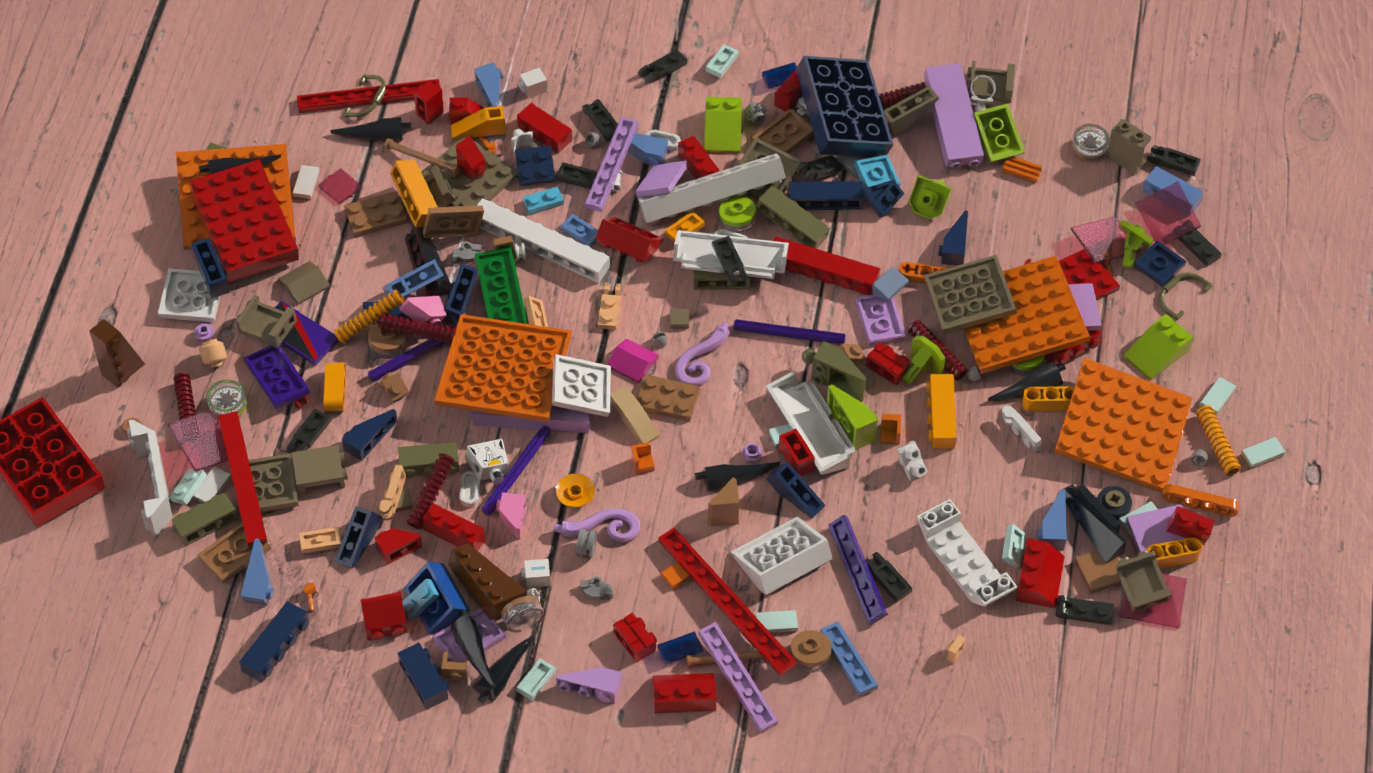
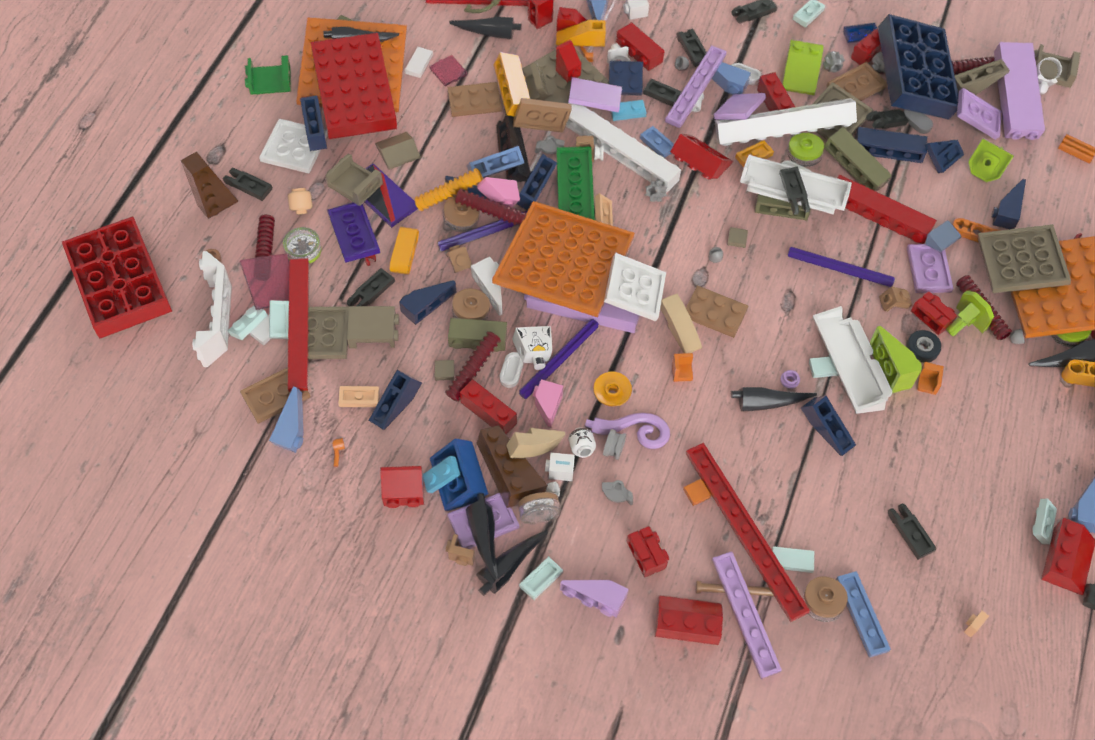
camera: 10 degrees right, 5 degrees up
(145, 225) = (269, 78): none -> green panel
(153, 343) = (248, 183): none -> pearl dark grey hinge
(204, 336) = (297, 184): lavender plate -> none
(204, 519) = (254, 357): olive brick -> none
(221, 476) = (278, 319): none -> light aqua tile
(274, 642) = (292, 492): dark blue brick -> none
(390, 144) = (553, 69): medium nougat bar -> none
(392, 494) = (436, 362): light nougat hinge -> none
(396, 544) = (431, 413): red slope -> none
(415, 430) = (470, 305): none -> medium nougat piece
(422, 399) = (482, 274): none -> white slope
(423, 675) = (430, 554): dark blue brick -> none
(505, 190) = (595, 94): none -> lavender tile
(506, 553) = (533, 442): none -> tan slope
(553, 546) = (582, 442): none -> white head
(587, 283) = (652, 188): none -> light grey gear
(609, 308) = (673, 217): light nougat hinge -> none
(632, 360) = (687, 270): dark pink slope -> none
(679, 648) = (691, 571): clear blue plate -> none
(715, 341) = (769, 264): lavender plant -> none
(725, 506) = (758, 430): medium nougat slope -> none
(782, 555) = (808, 490): white slope -> none
(796, 452) = (835, 386): red brick -> none
(834, 368) = (883, 309): olive slope -> none
(858, 569) = (882, 519): dark purple tile -> none
(875, 171) = (939, 129): medium azure tile -> none
(883, 390) = (929, 340): none -> black bush
(911, 460) = (949, 415): white hips -> none
(914, 147) = (979, 113): none -> lavender tile
(942, 411) = (982, 369): light orange brick -> none
(962, 555) = (992, 525): white slope -> none
(998, 133) = (1060, 112): lime slope -> none
(1022, 428) = (1062, 399): white hinge -> none

